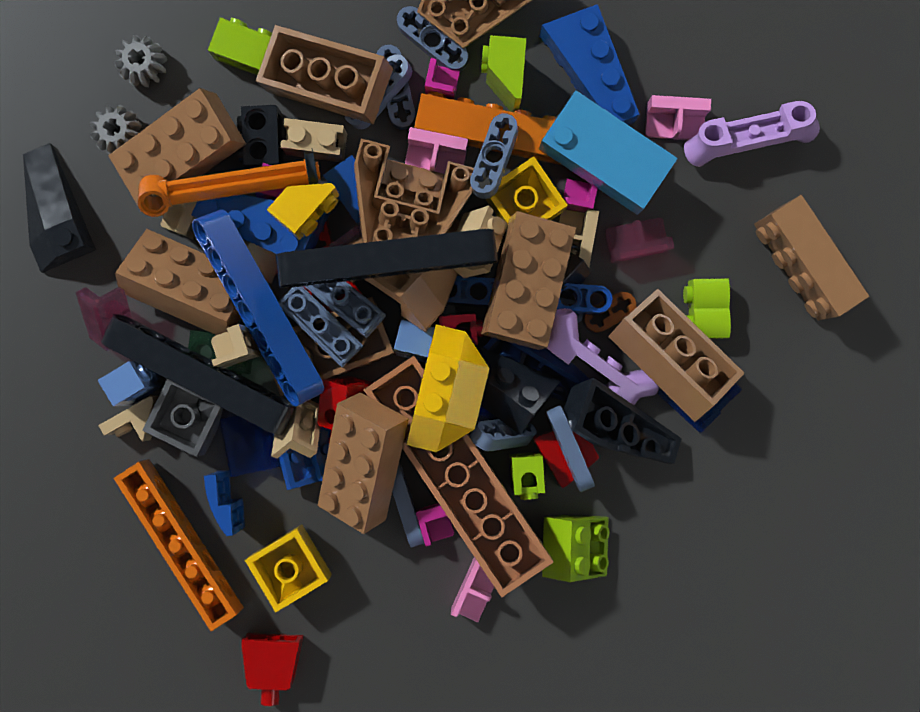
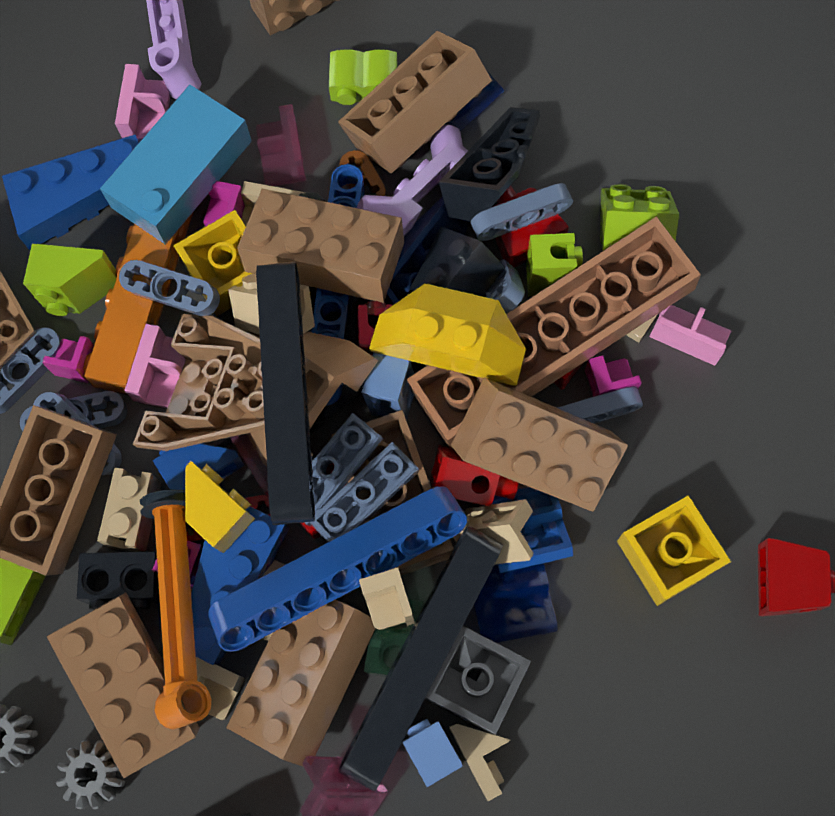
camera: 80 degrees left, 15 degrees down
(179, 544) = (646, 694): orange brick -> none
(227, 511) = (597, 625): blue slope -> none

